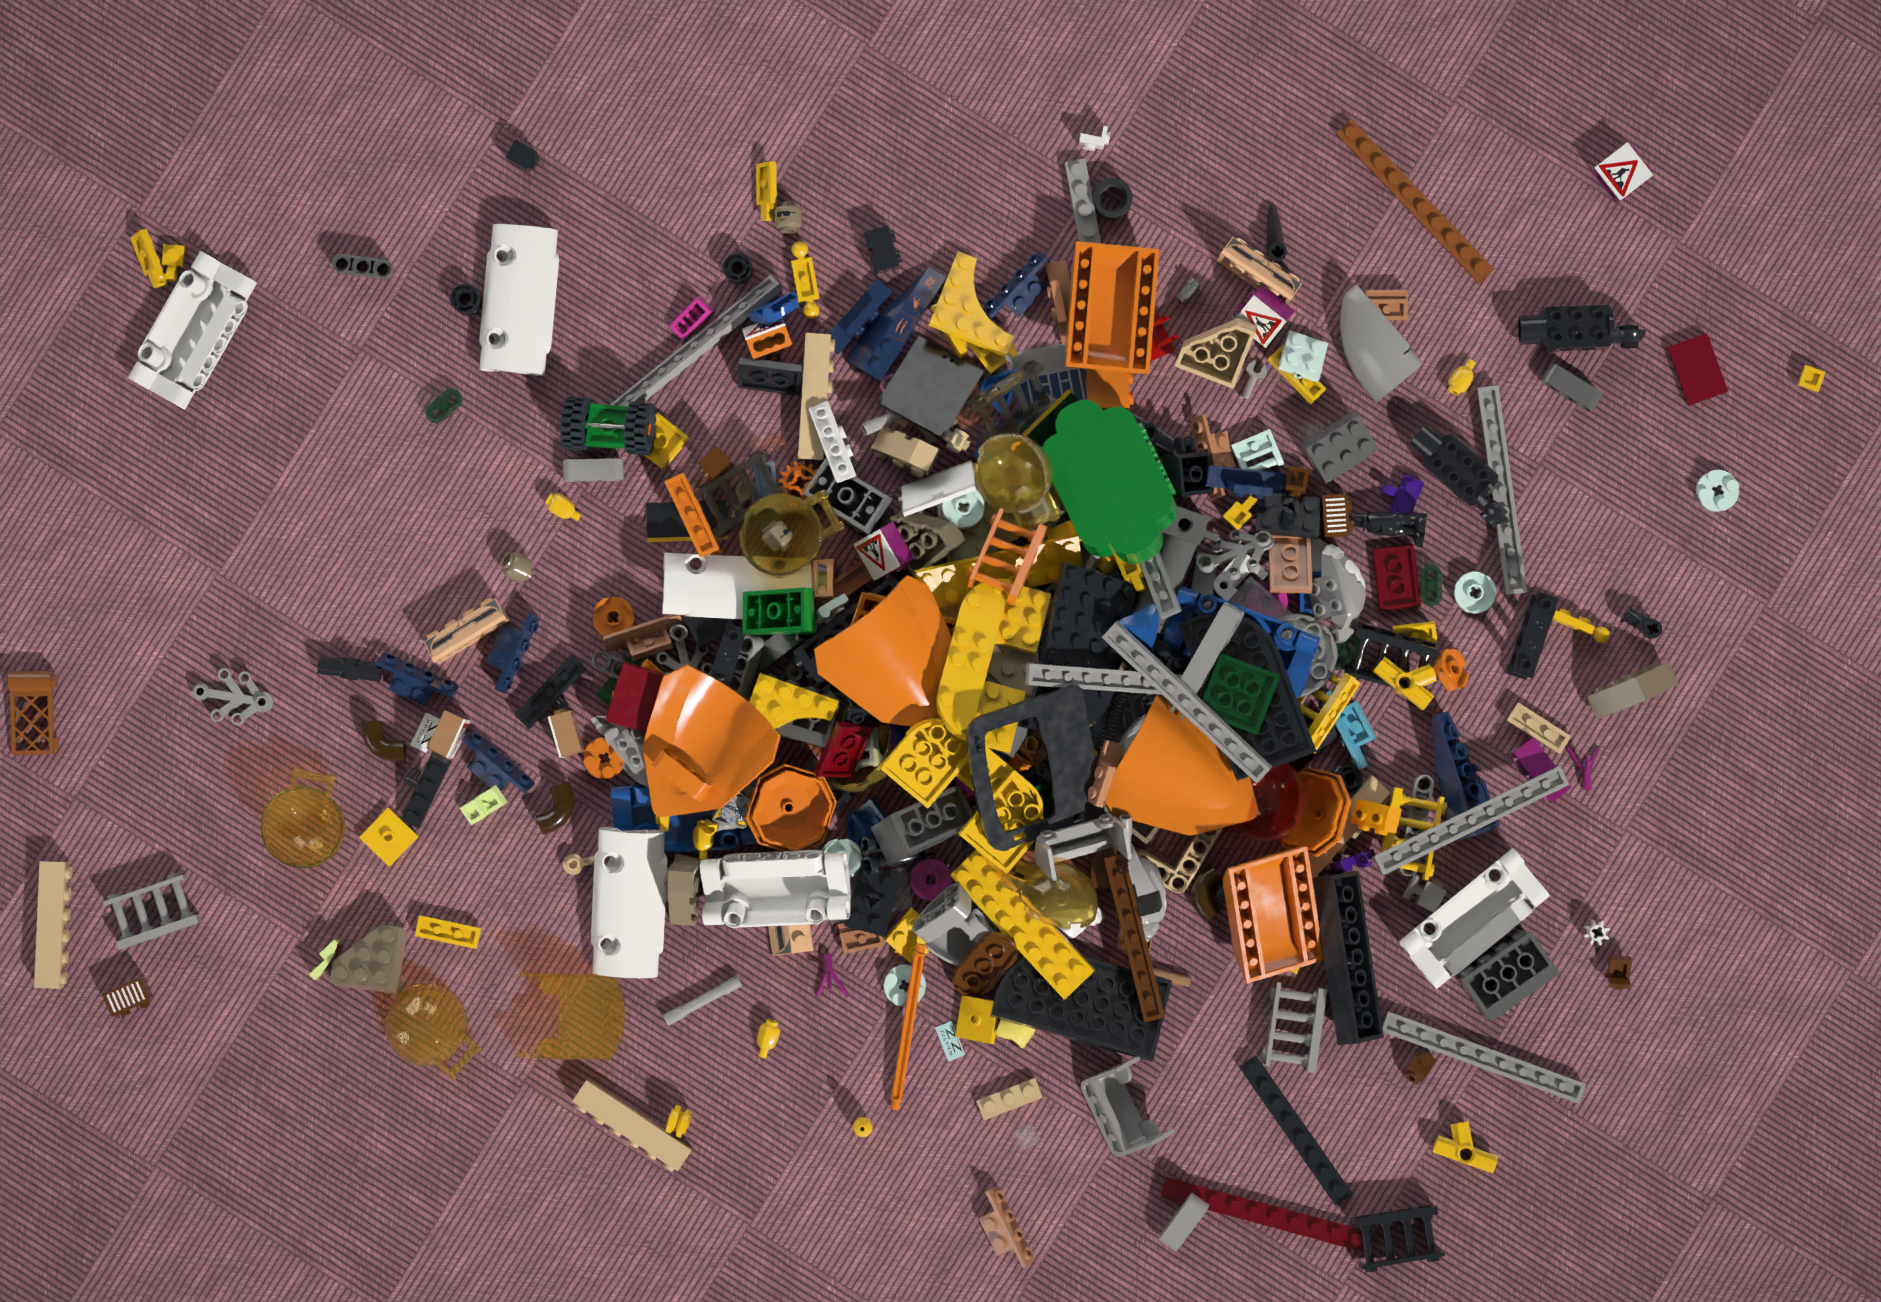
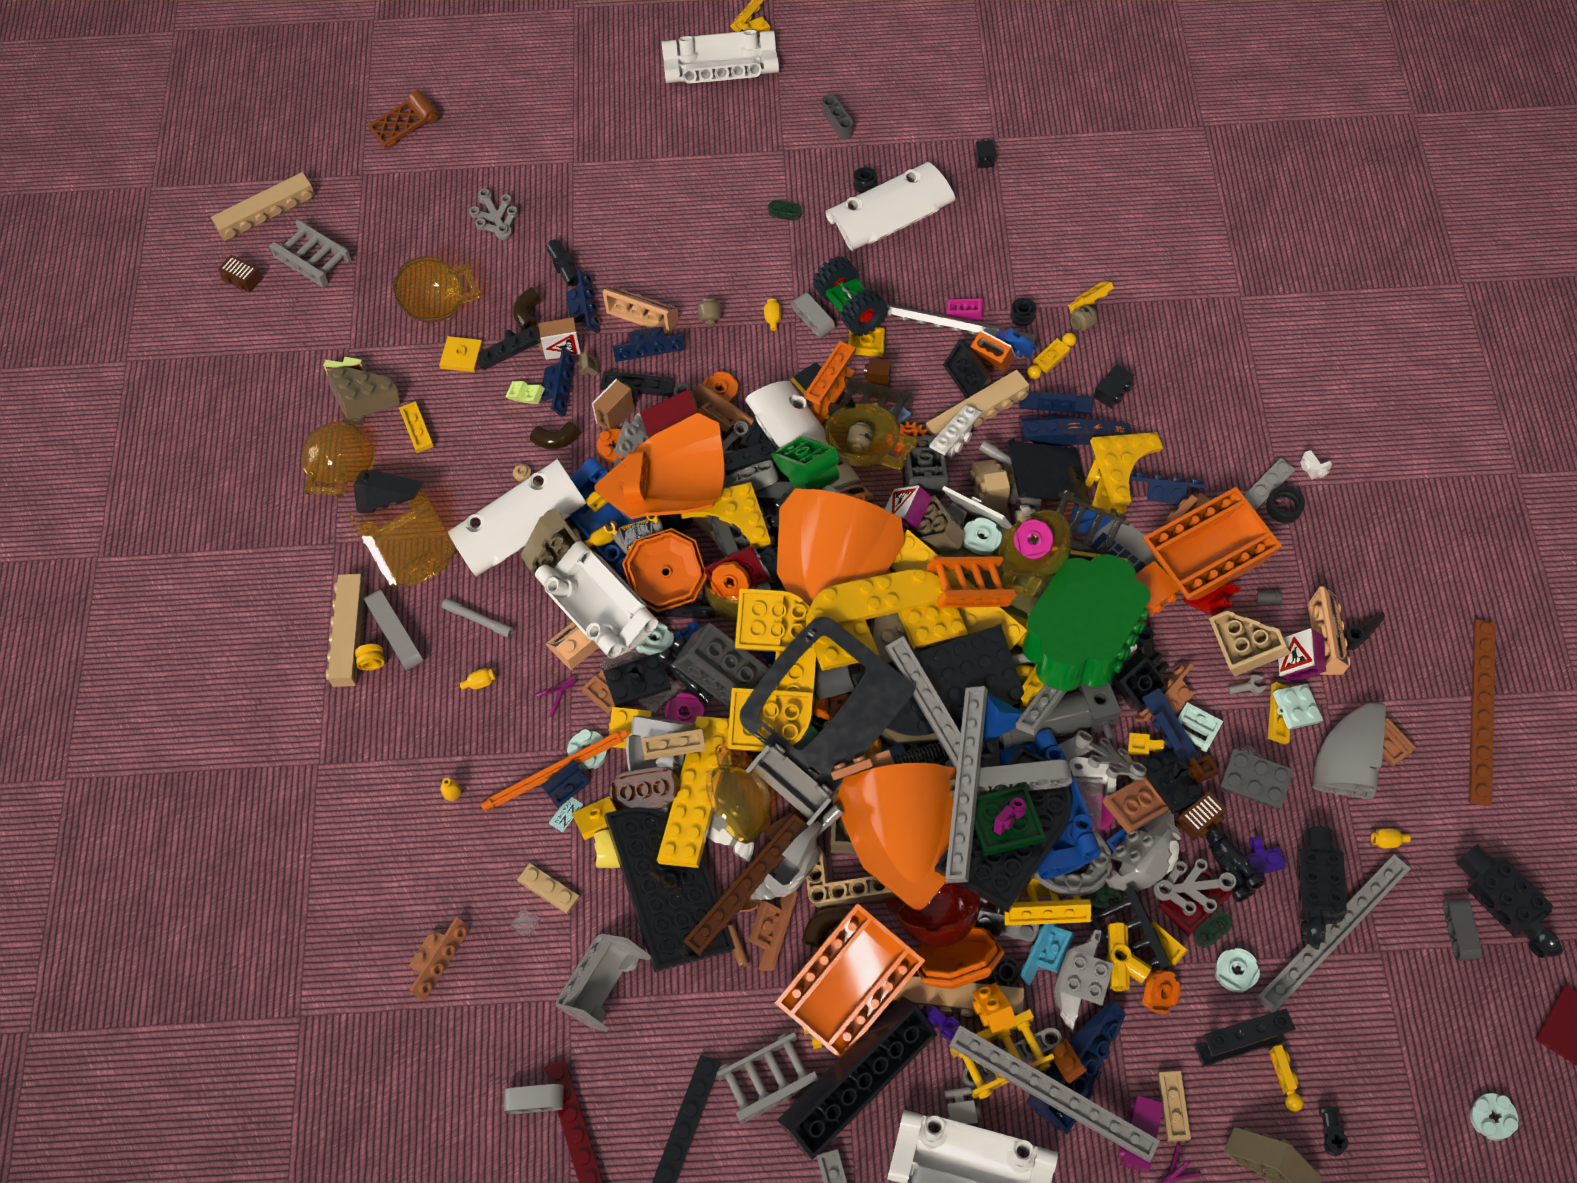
camera: 55 degrees right, 25 degrees down
(495, 723) = (588, 364): none -> dark tan tile
(508, 1011) = (380, 489): none -> black wedge
(661, 1083) = (393, 630): none -> light grey beam
(849, 761) = (729, 570): none -> orange plate
(927, 1026) = (565, 784): none -> dark blue plate
(974, 918) = (673, 744): none -> tan plate
(1000, 457) = (1044, 544): none -> dark pink plate
(1179, 942) = (770, 929): none -> nougat bracket
(1245, 698) = (1005, 819): none -> magenta plate
(1386, 574) = (1191, 887): none -> light grey plant
(1398, 725) = (1081, 978): none -> light grey animal
(1453, 788) = (1067, 1061): none -> dark orange plate

